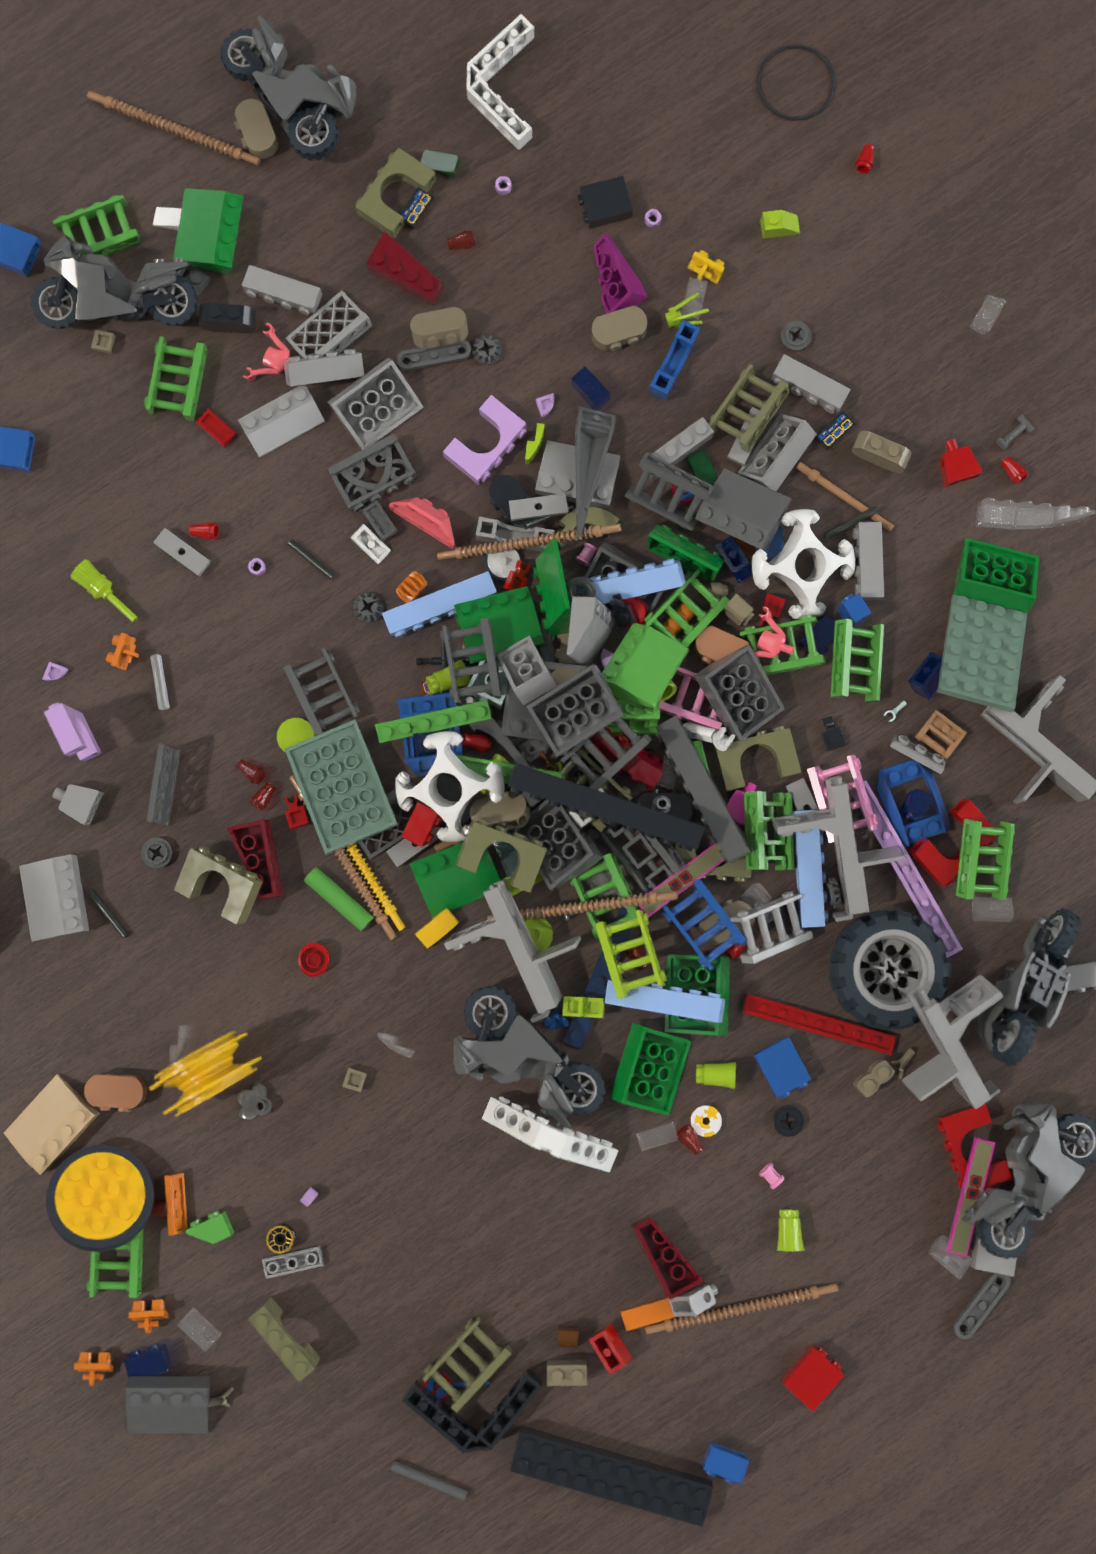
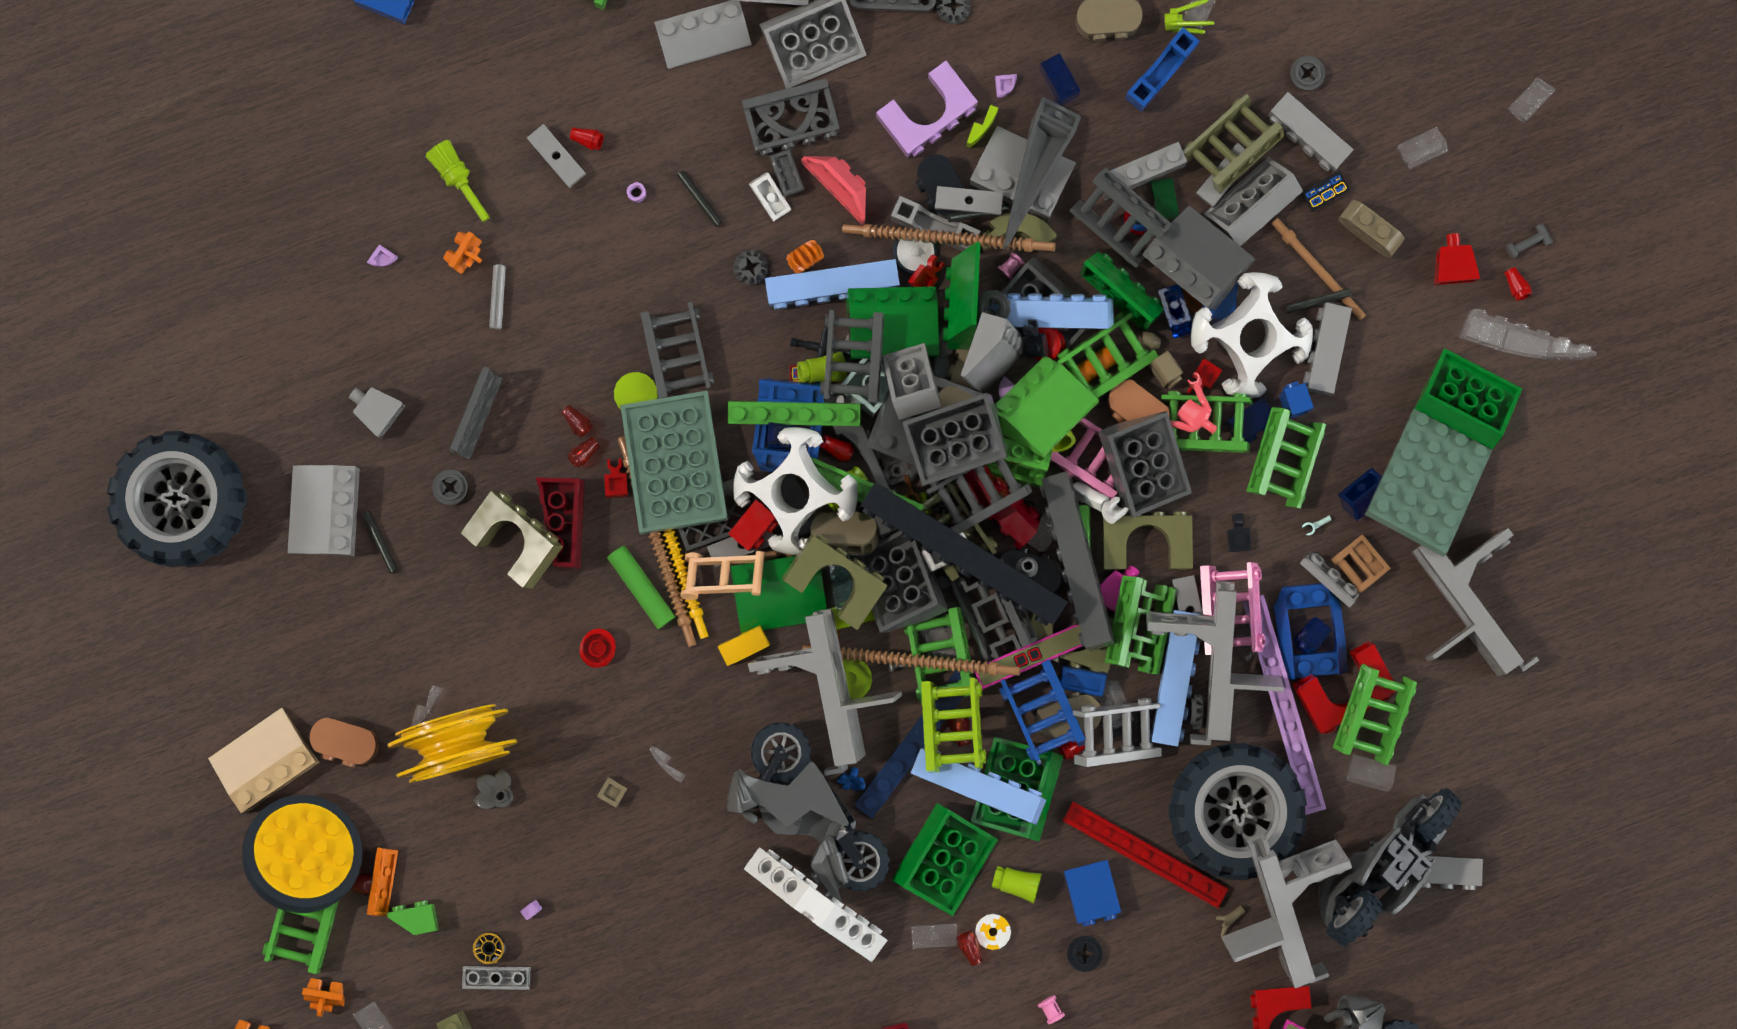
camera: 10 degrees right, 0 degrees up
(72, 732) = (390, 330): lavender arch -> none
(216, 428) = (627, 24): red tile -> none
(379, 864) = (696, 559): none -> light nougat piece
(583, 1007) = (886, 772): lime slope -> none
(731, 889) = (1083, 680): none -> blue tile
(870, 1081) = (1197, 924): dark tan brick -> none
(907, 375) = (1423, 148): none -> clear slope

